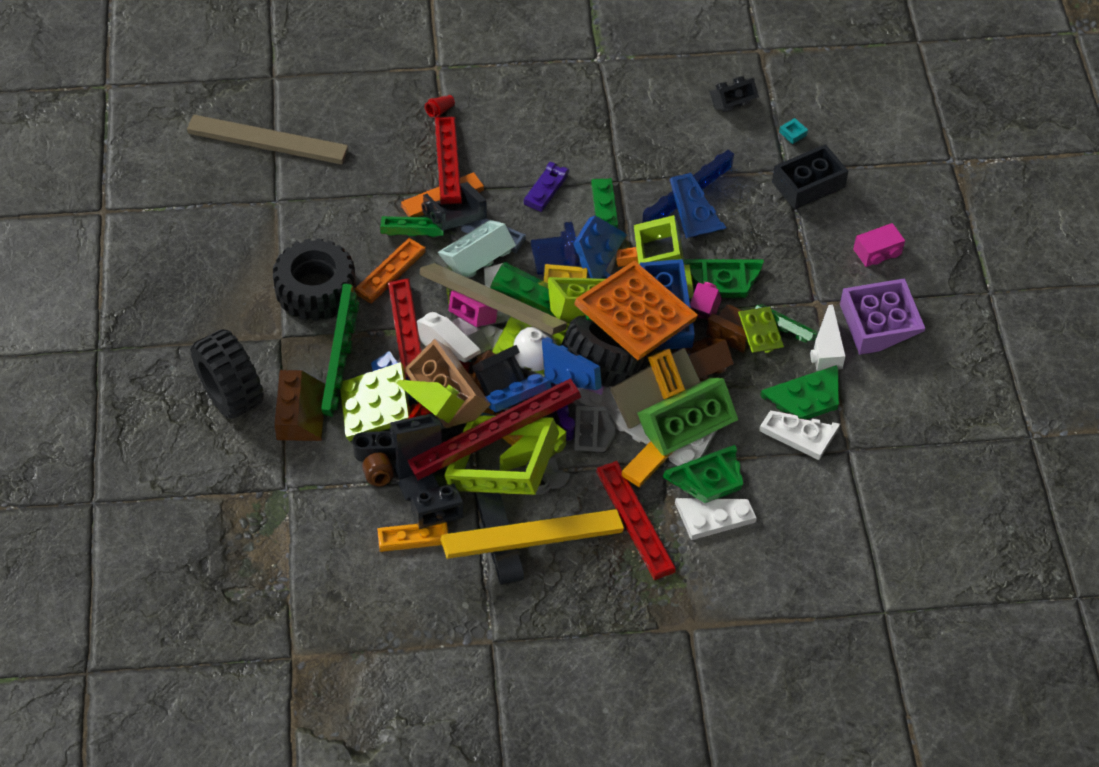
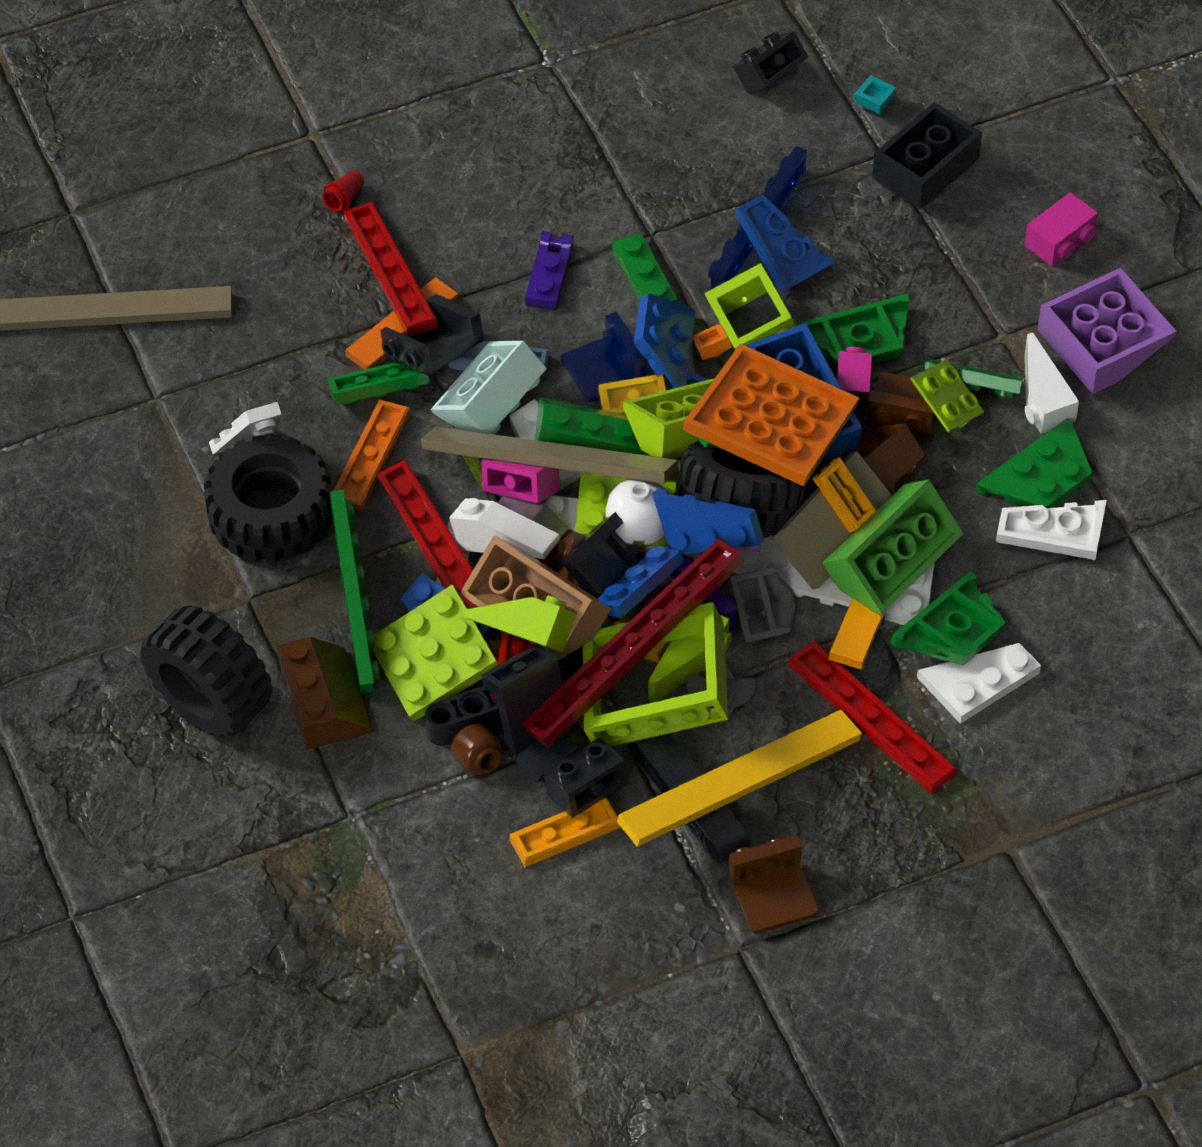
camera: 15 degrees left, 0 degrees up
(319, 229) = (251, 423): none -> white wing
(527, 608) = (771, 884): none -> reddish brown bracket

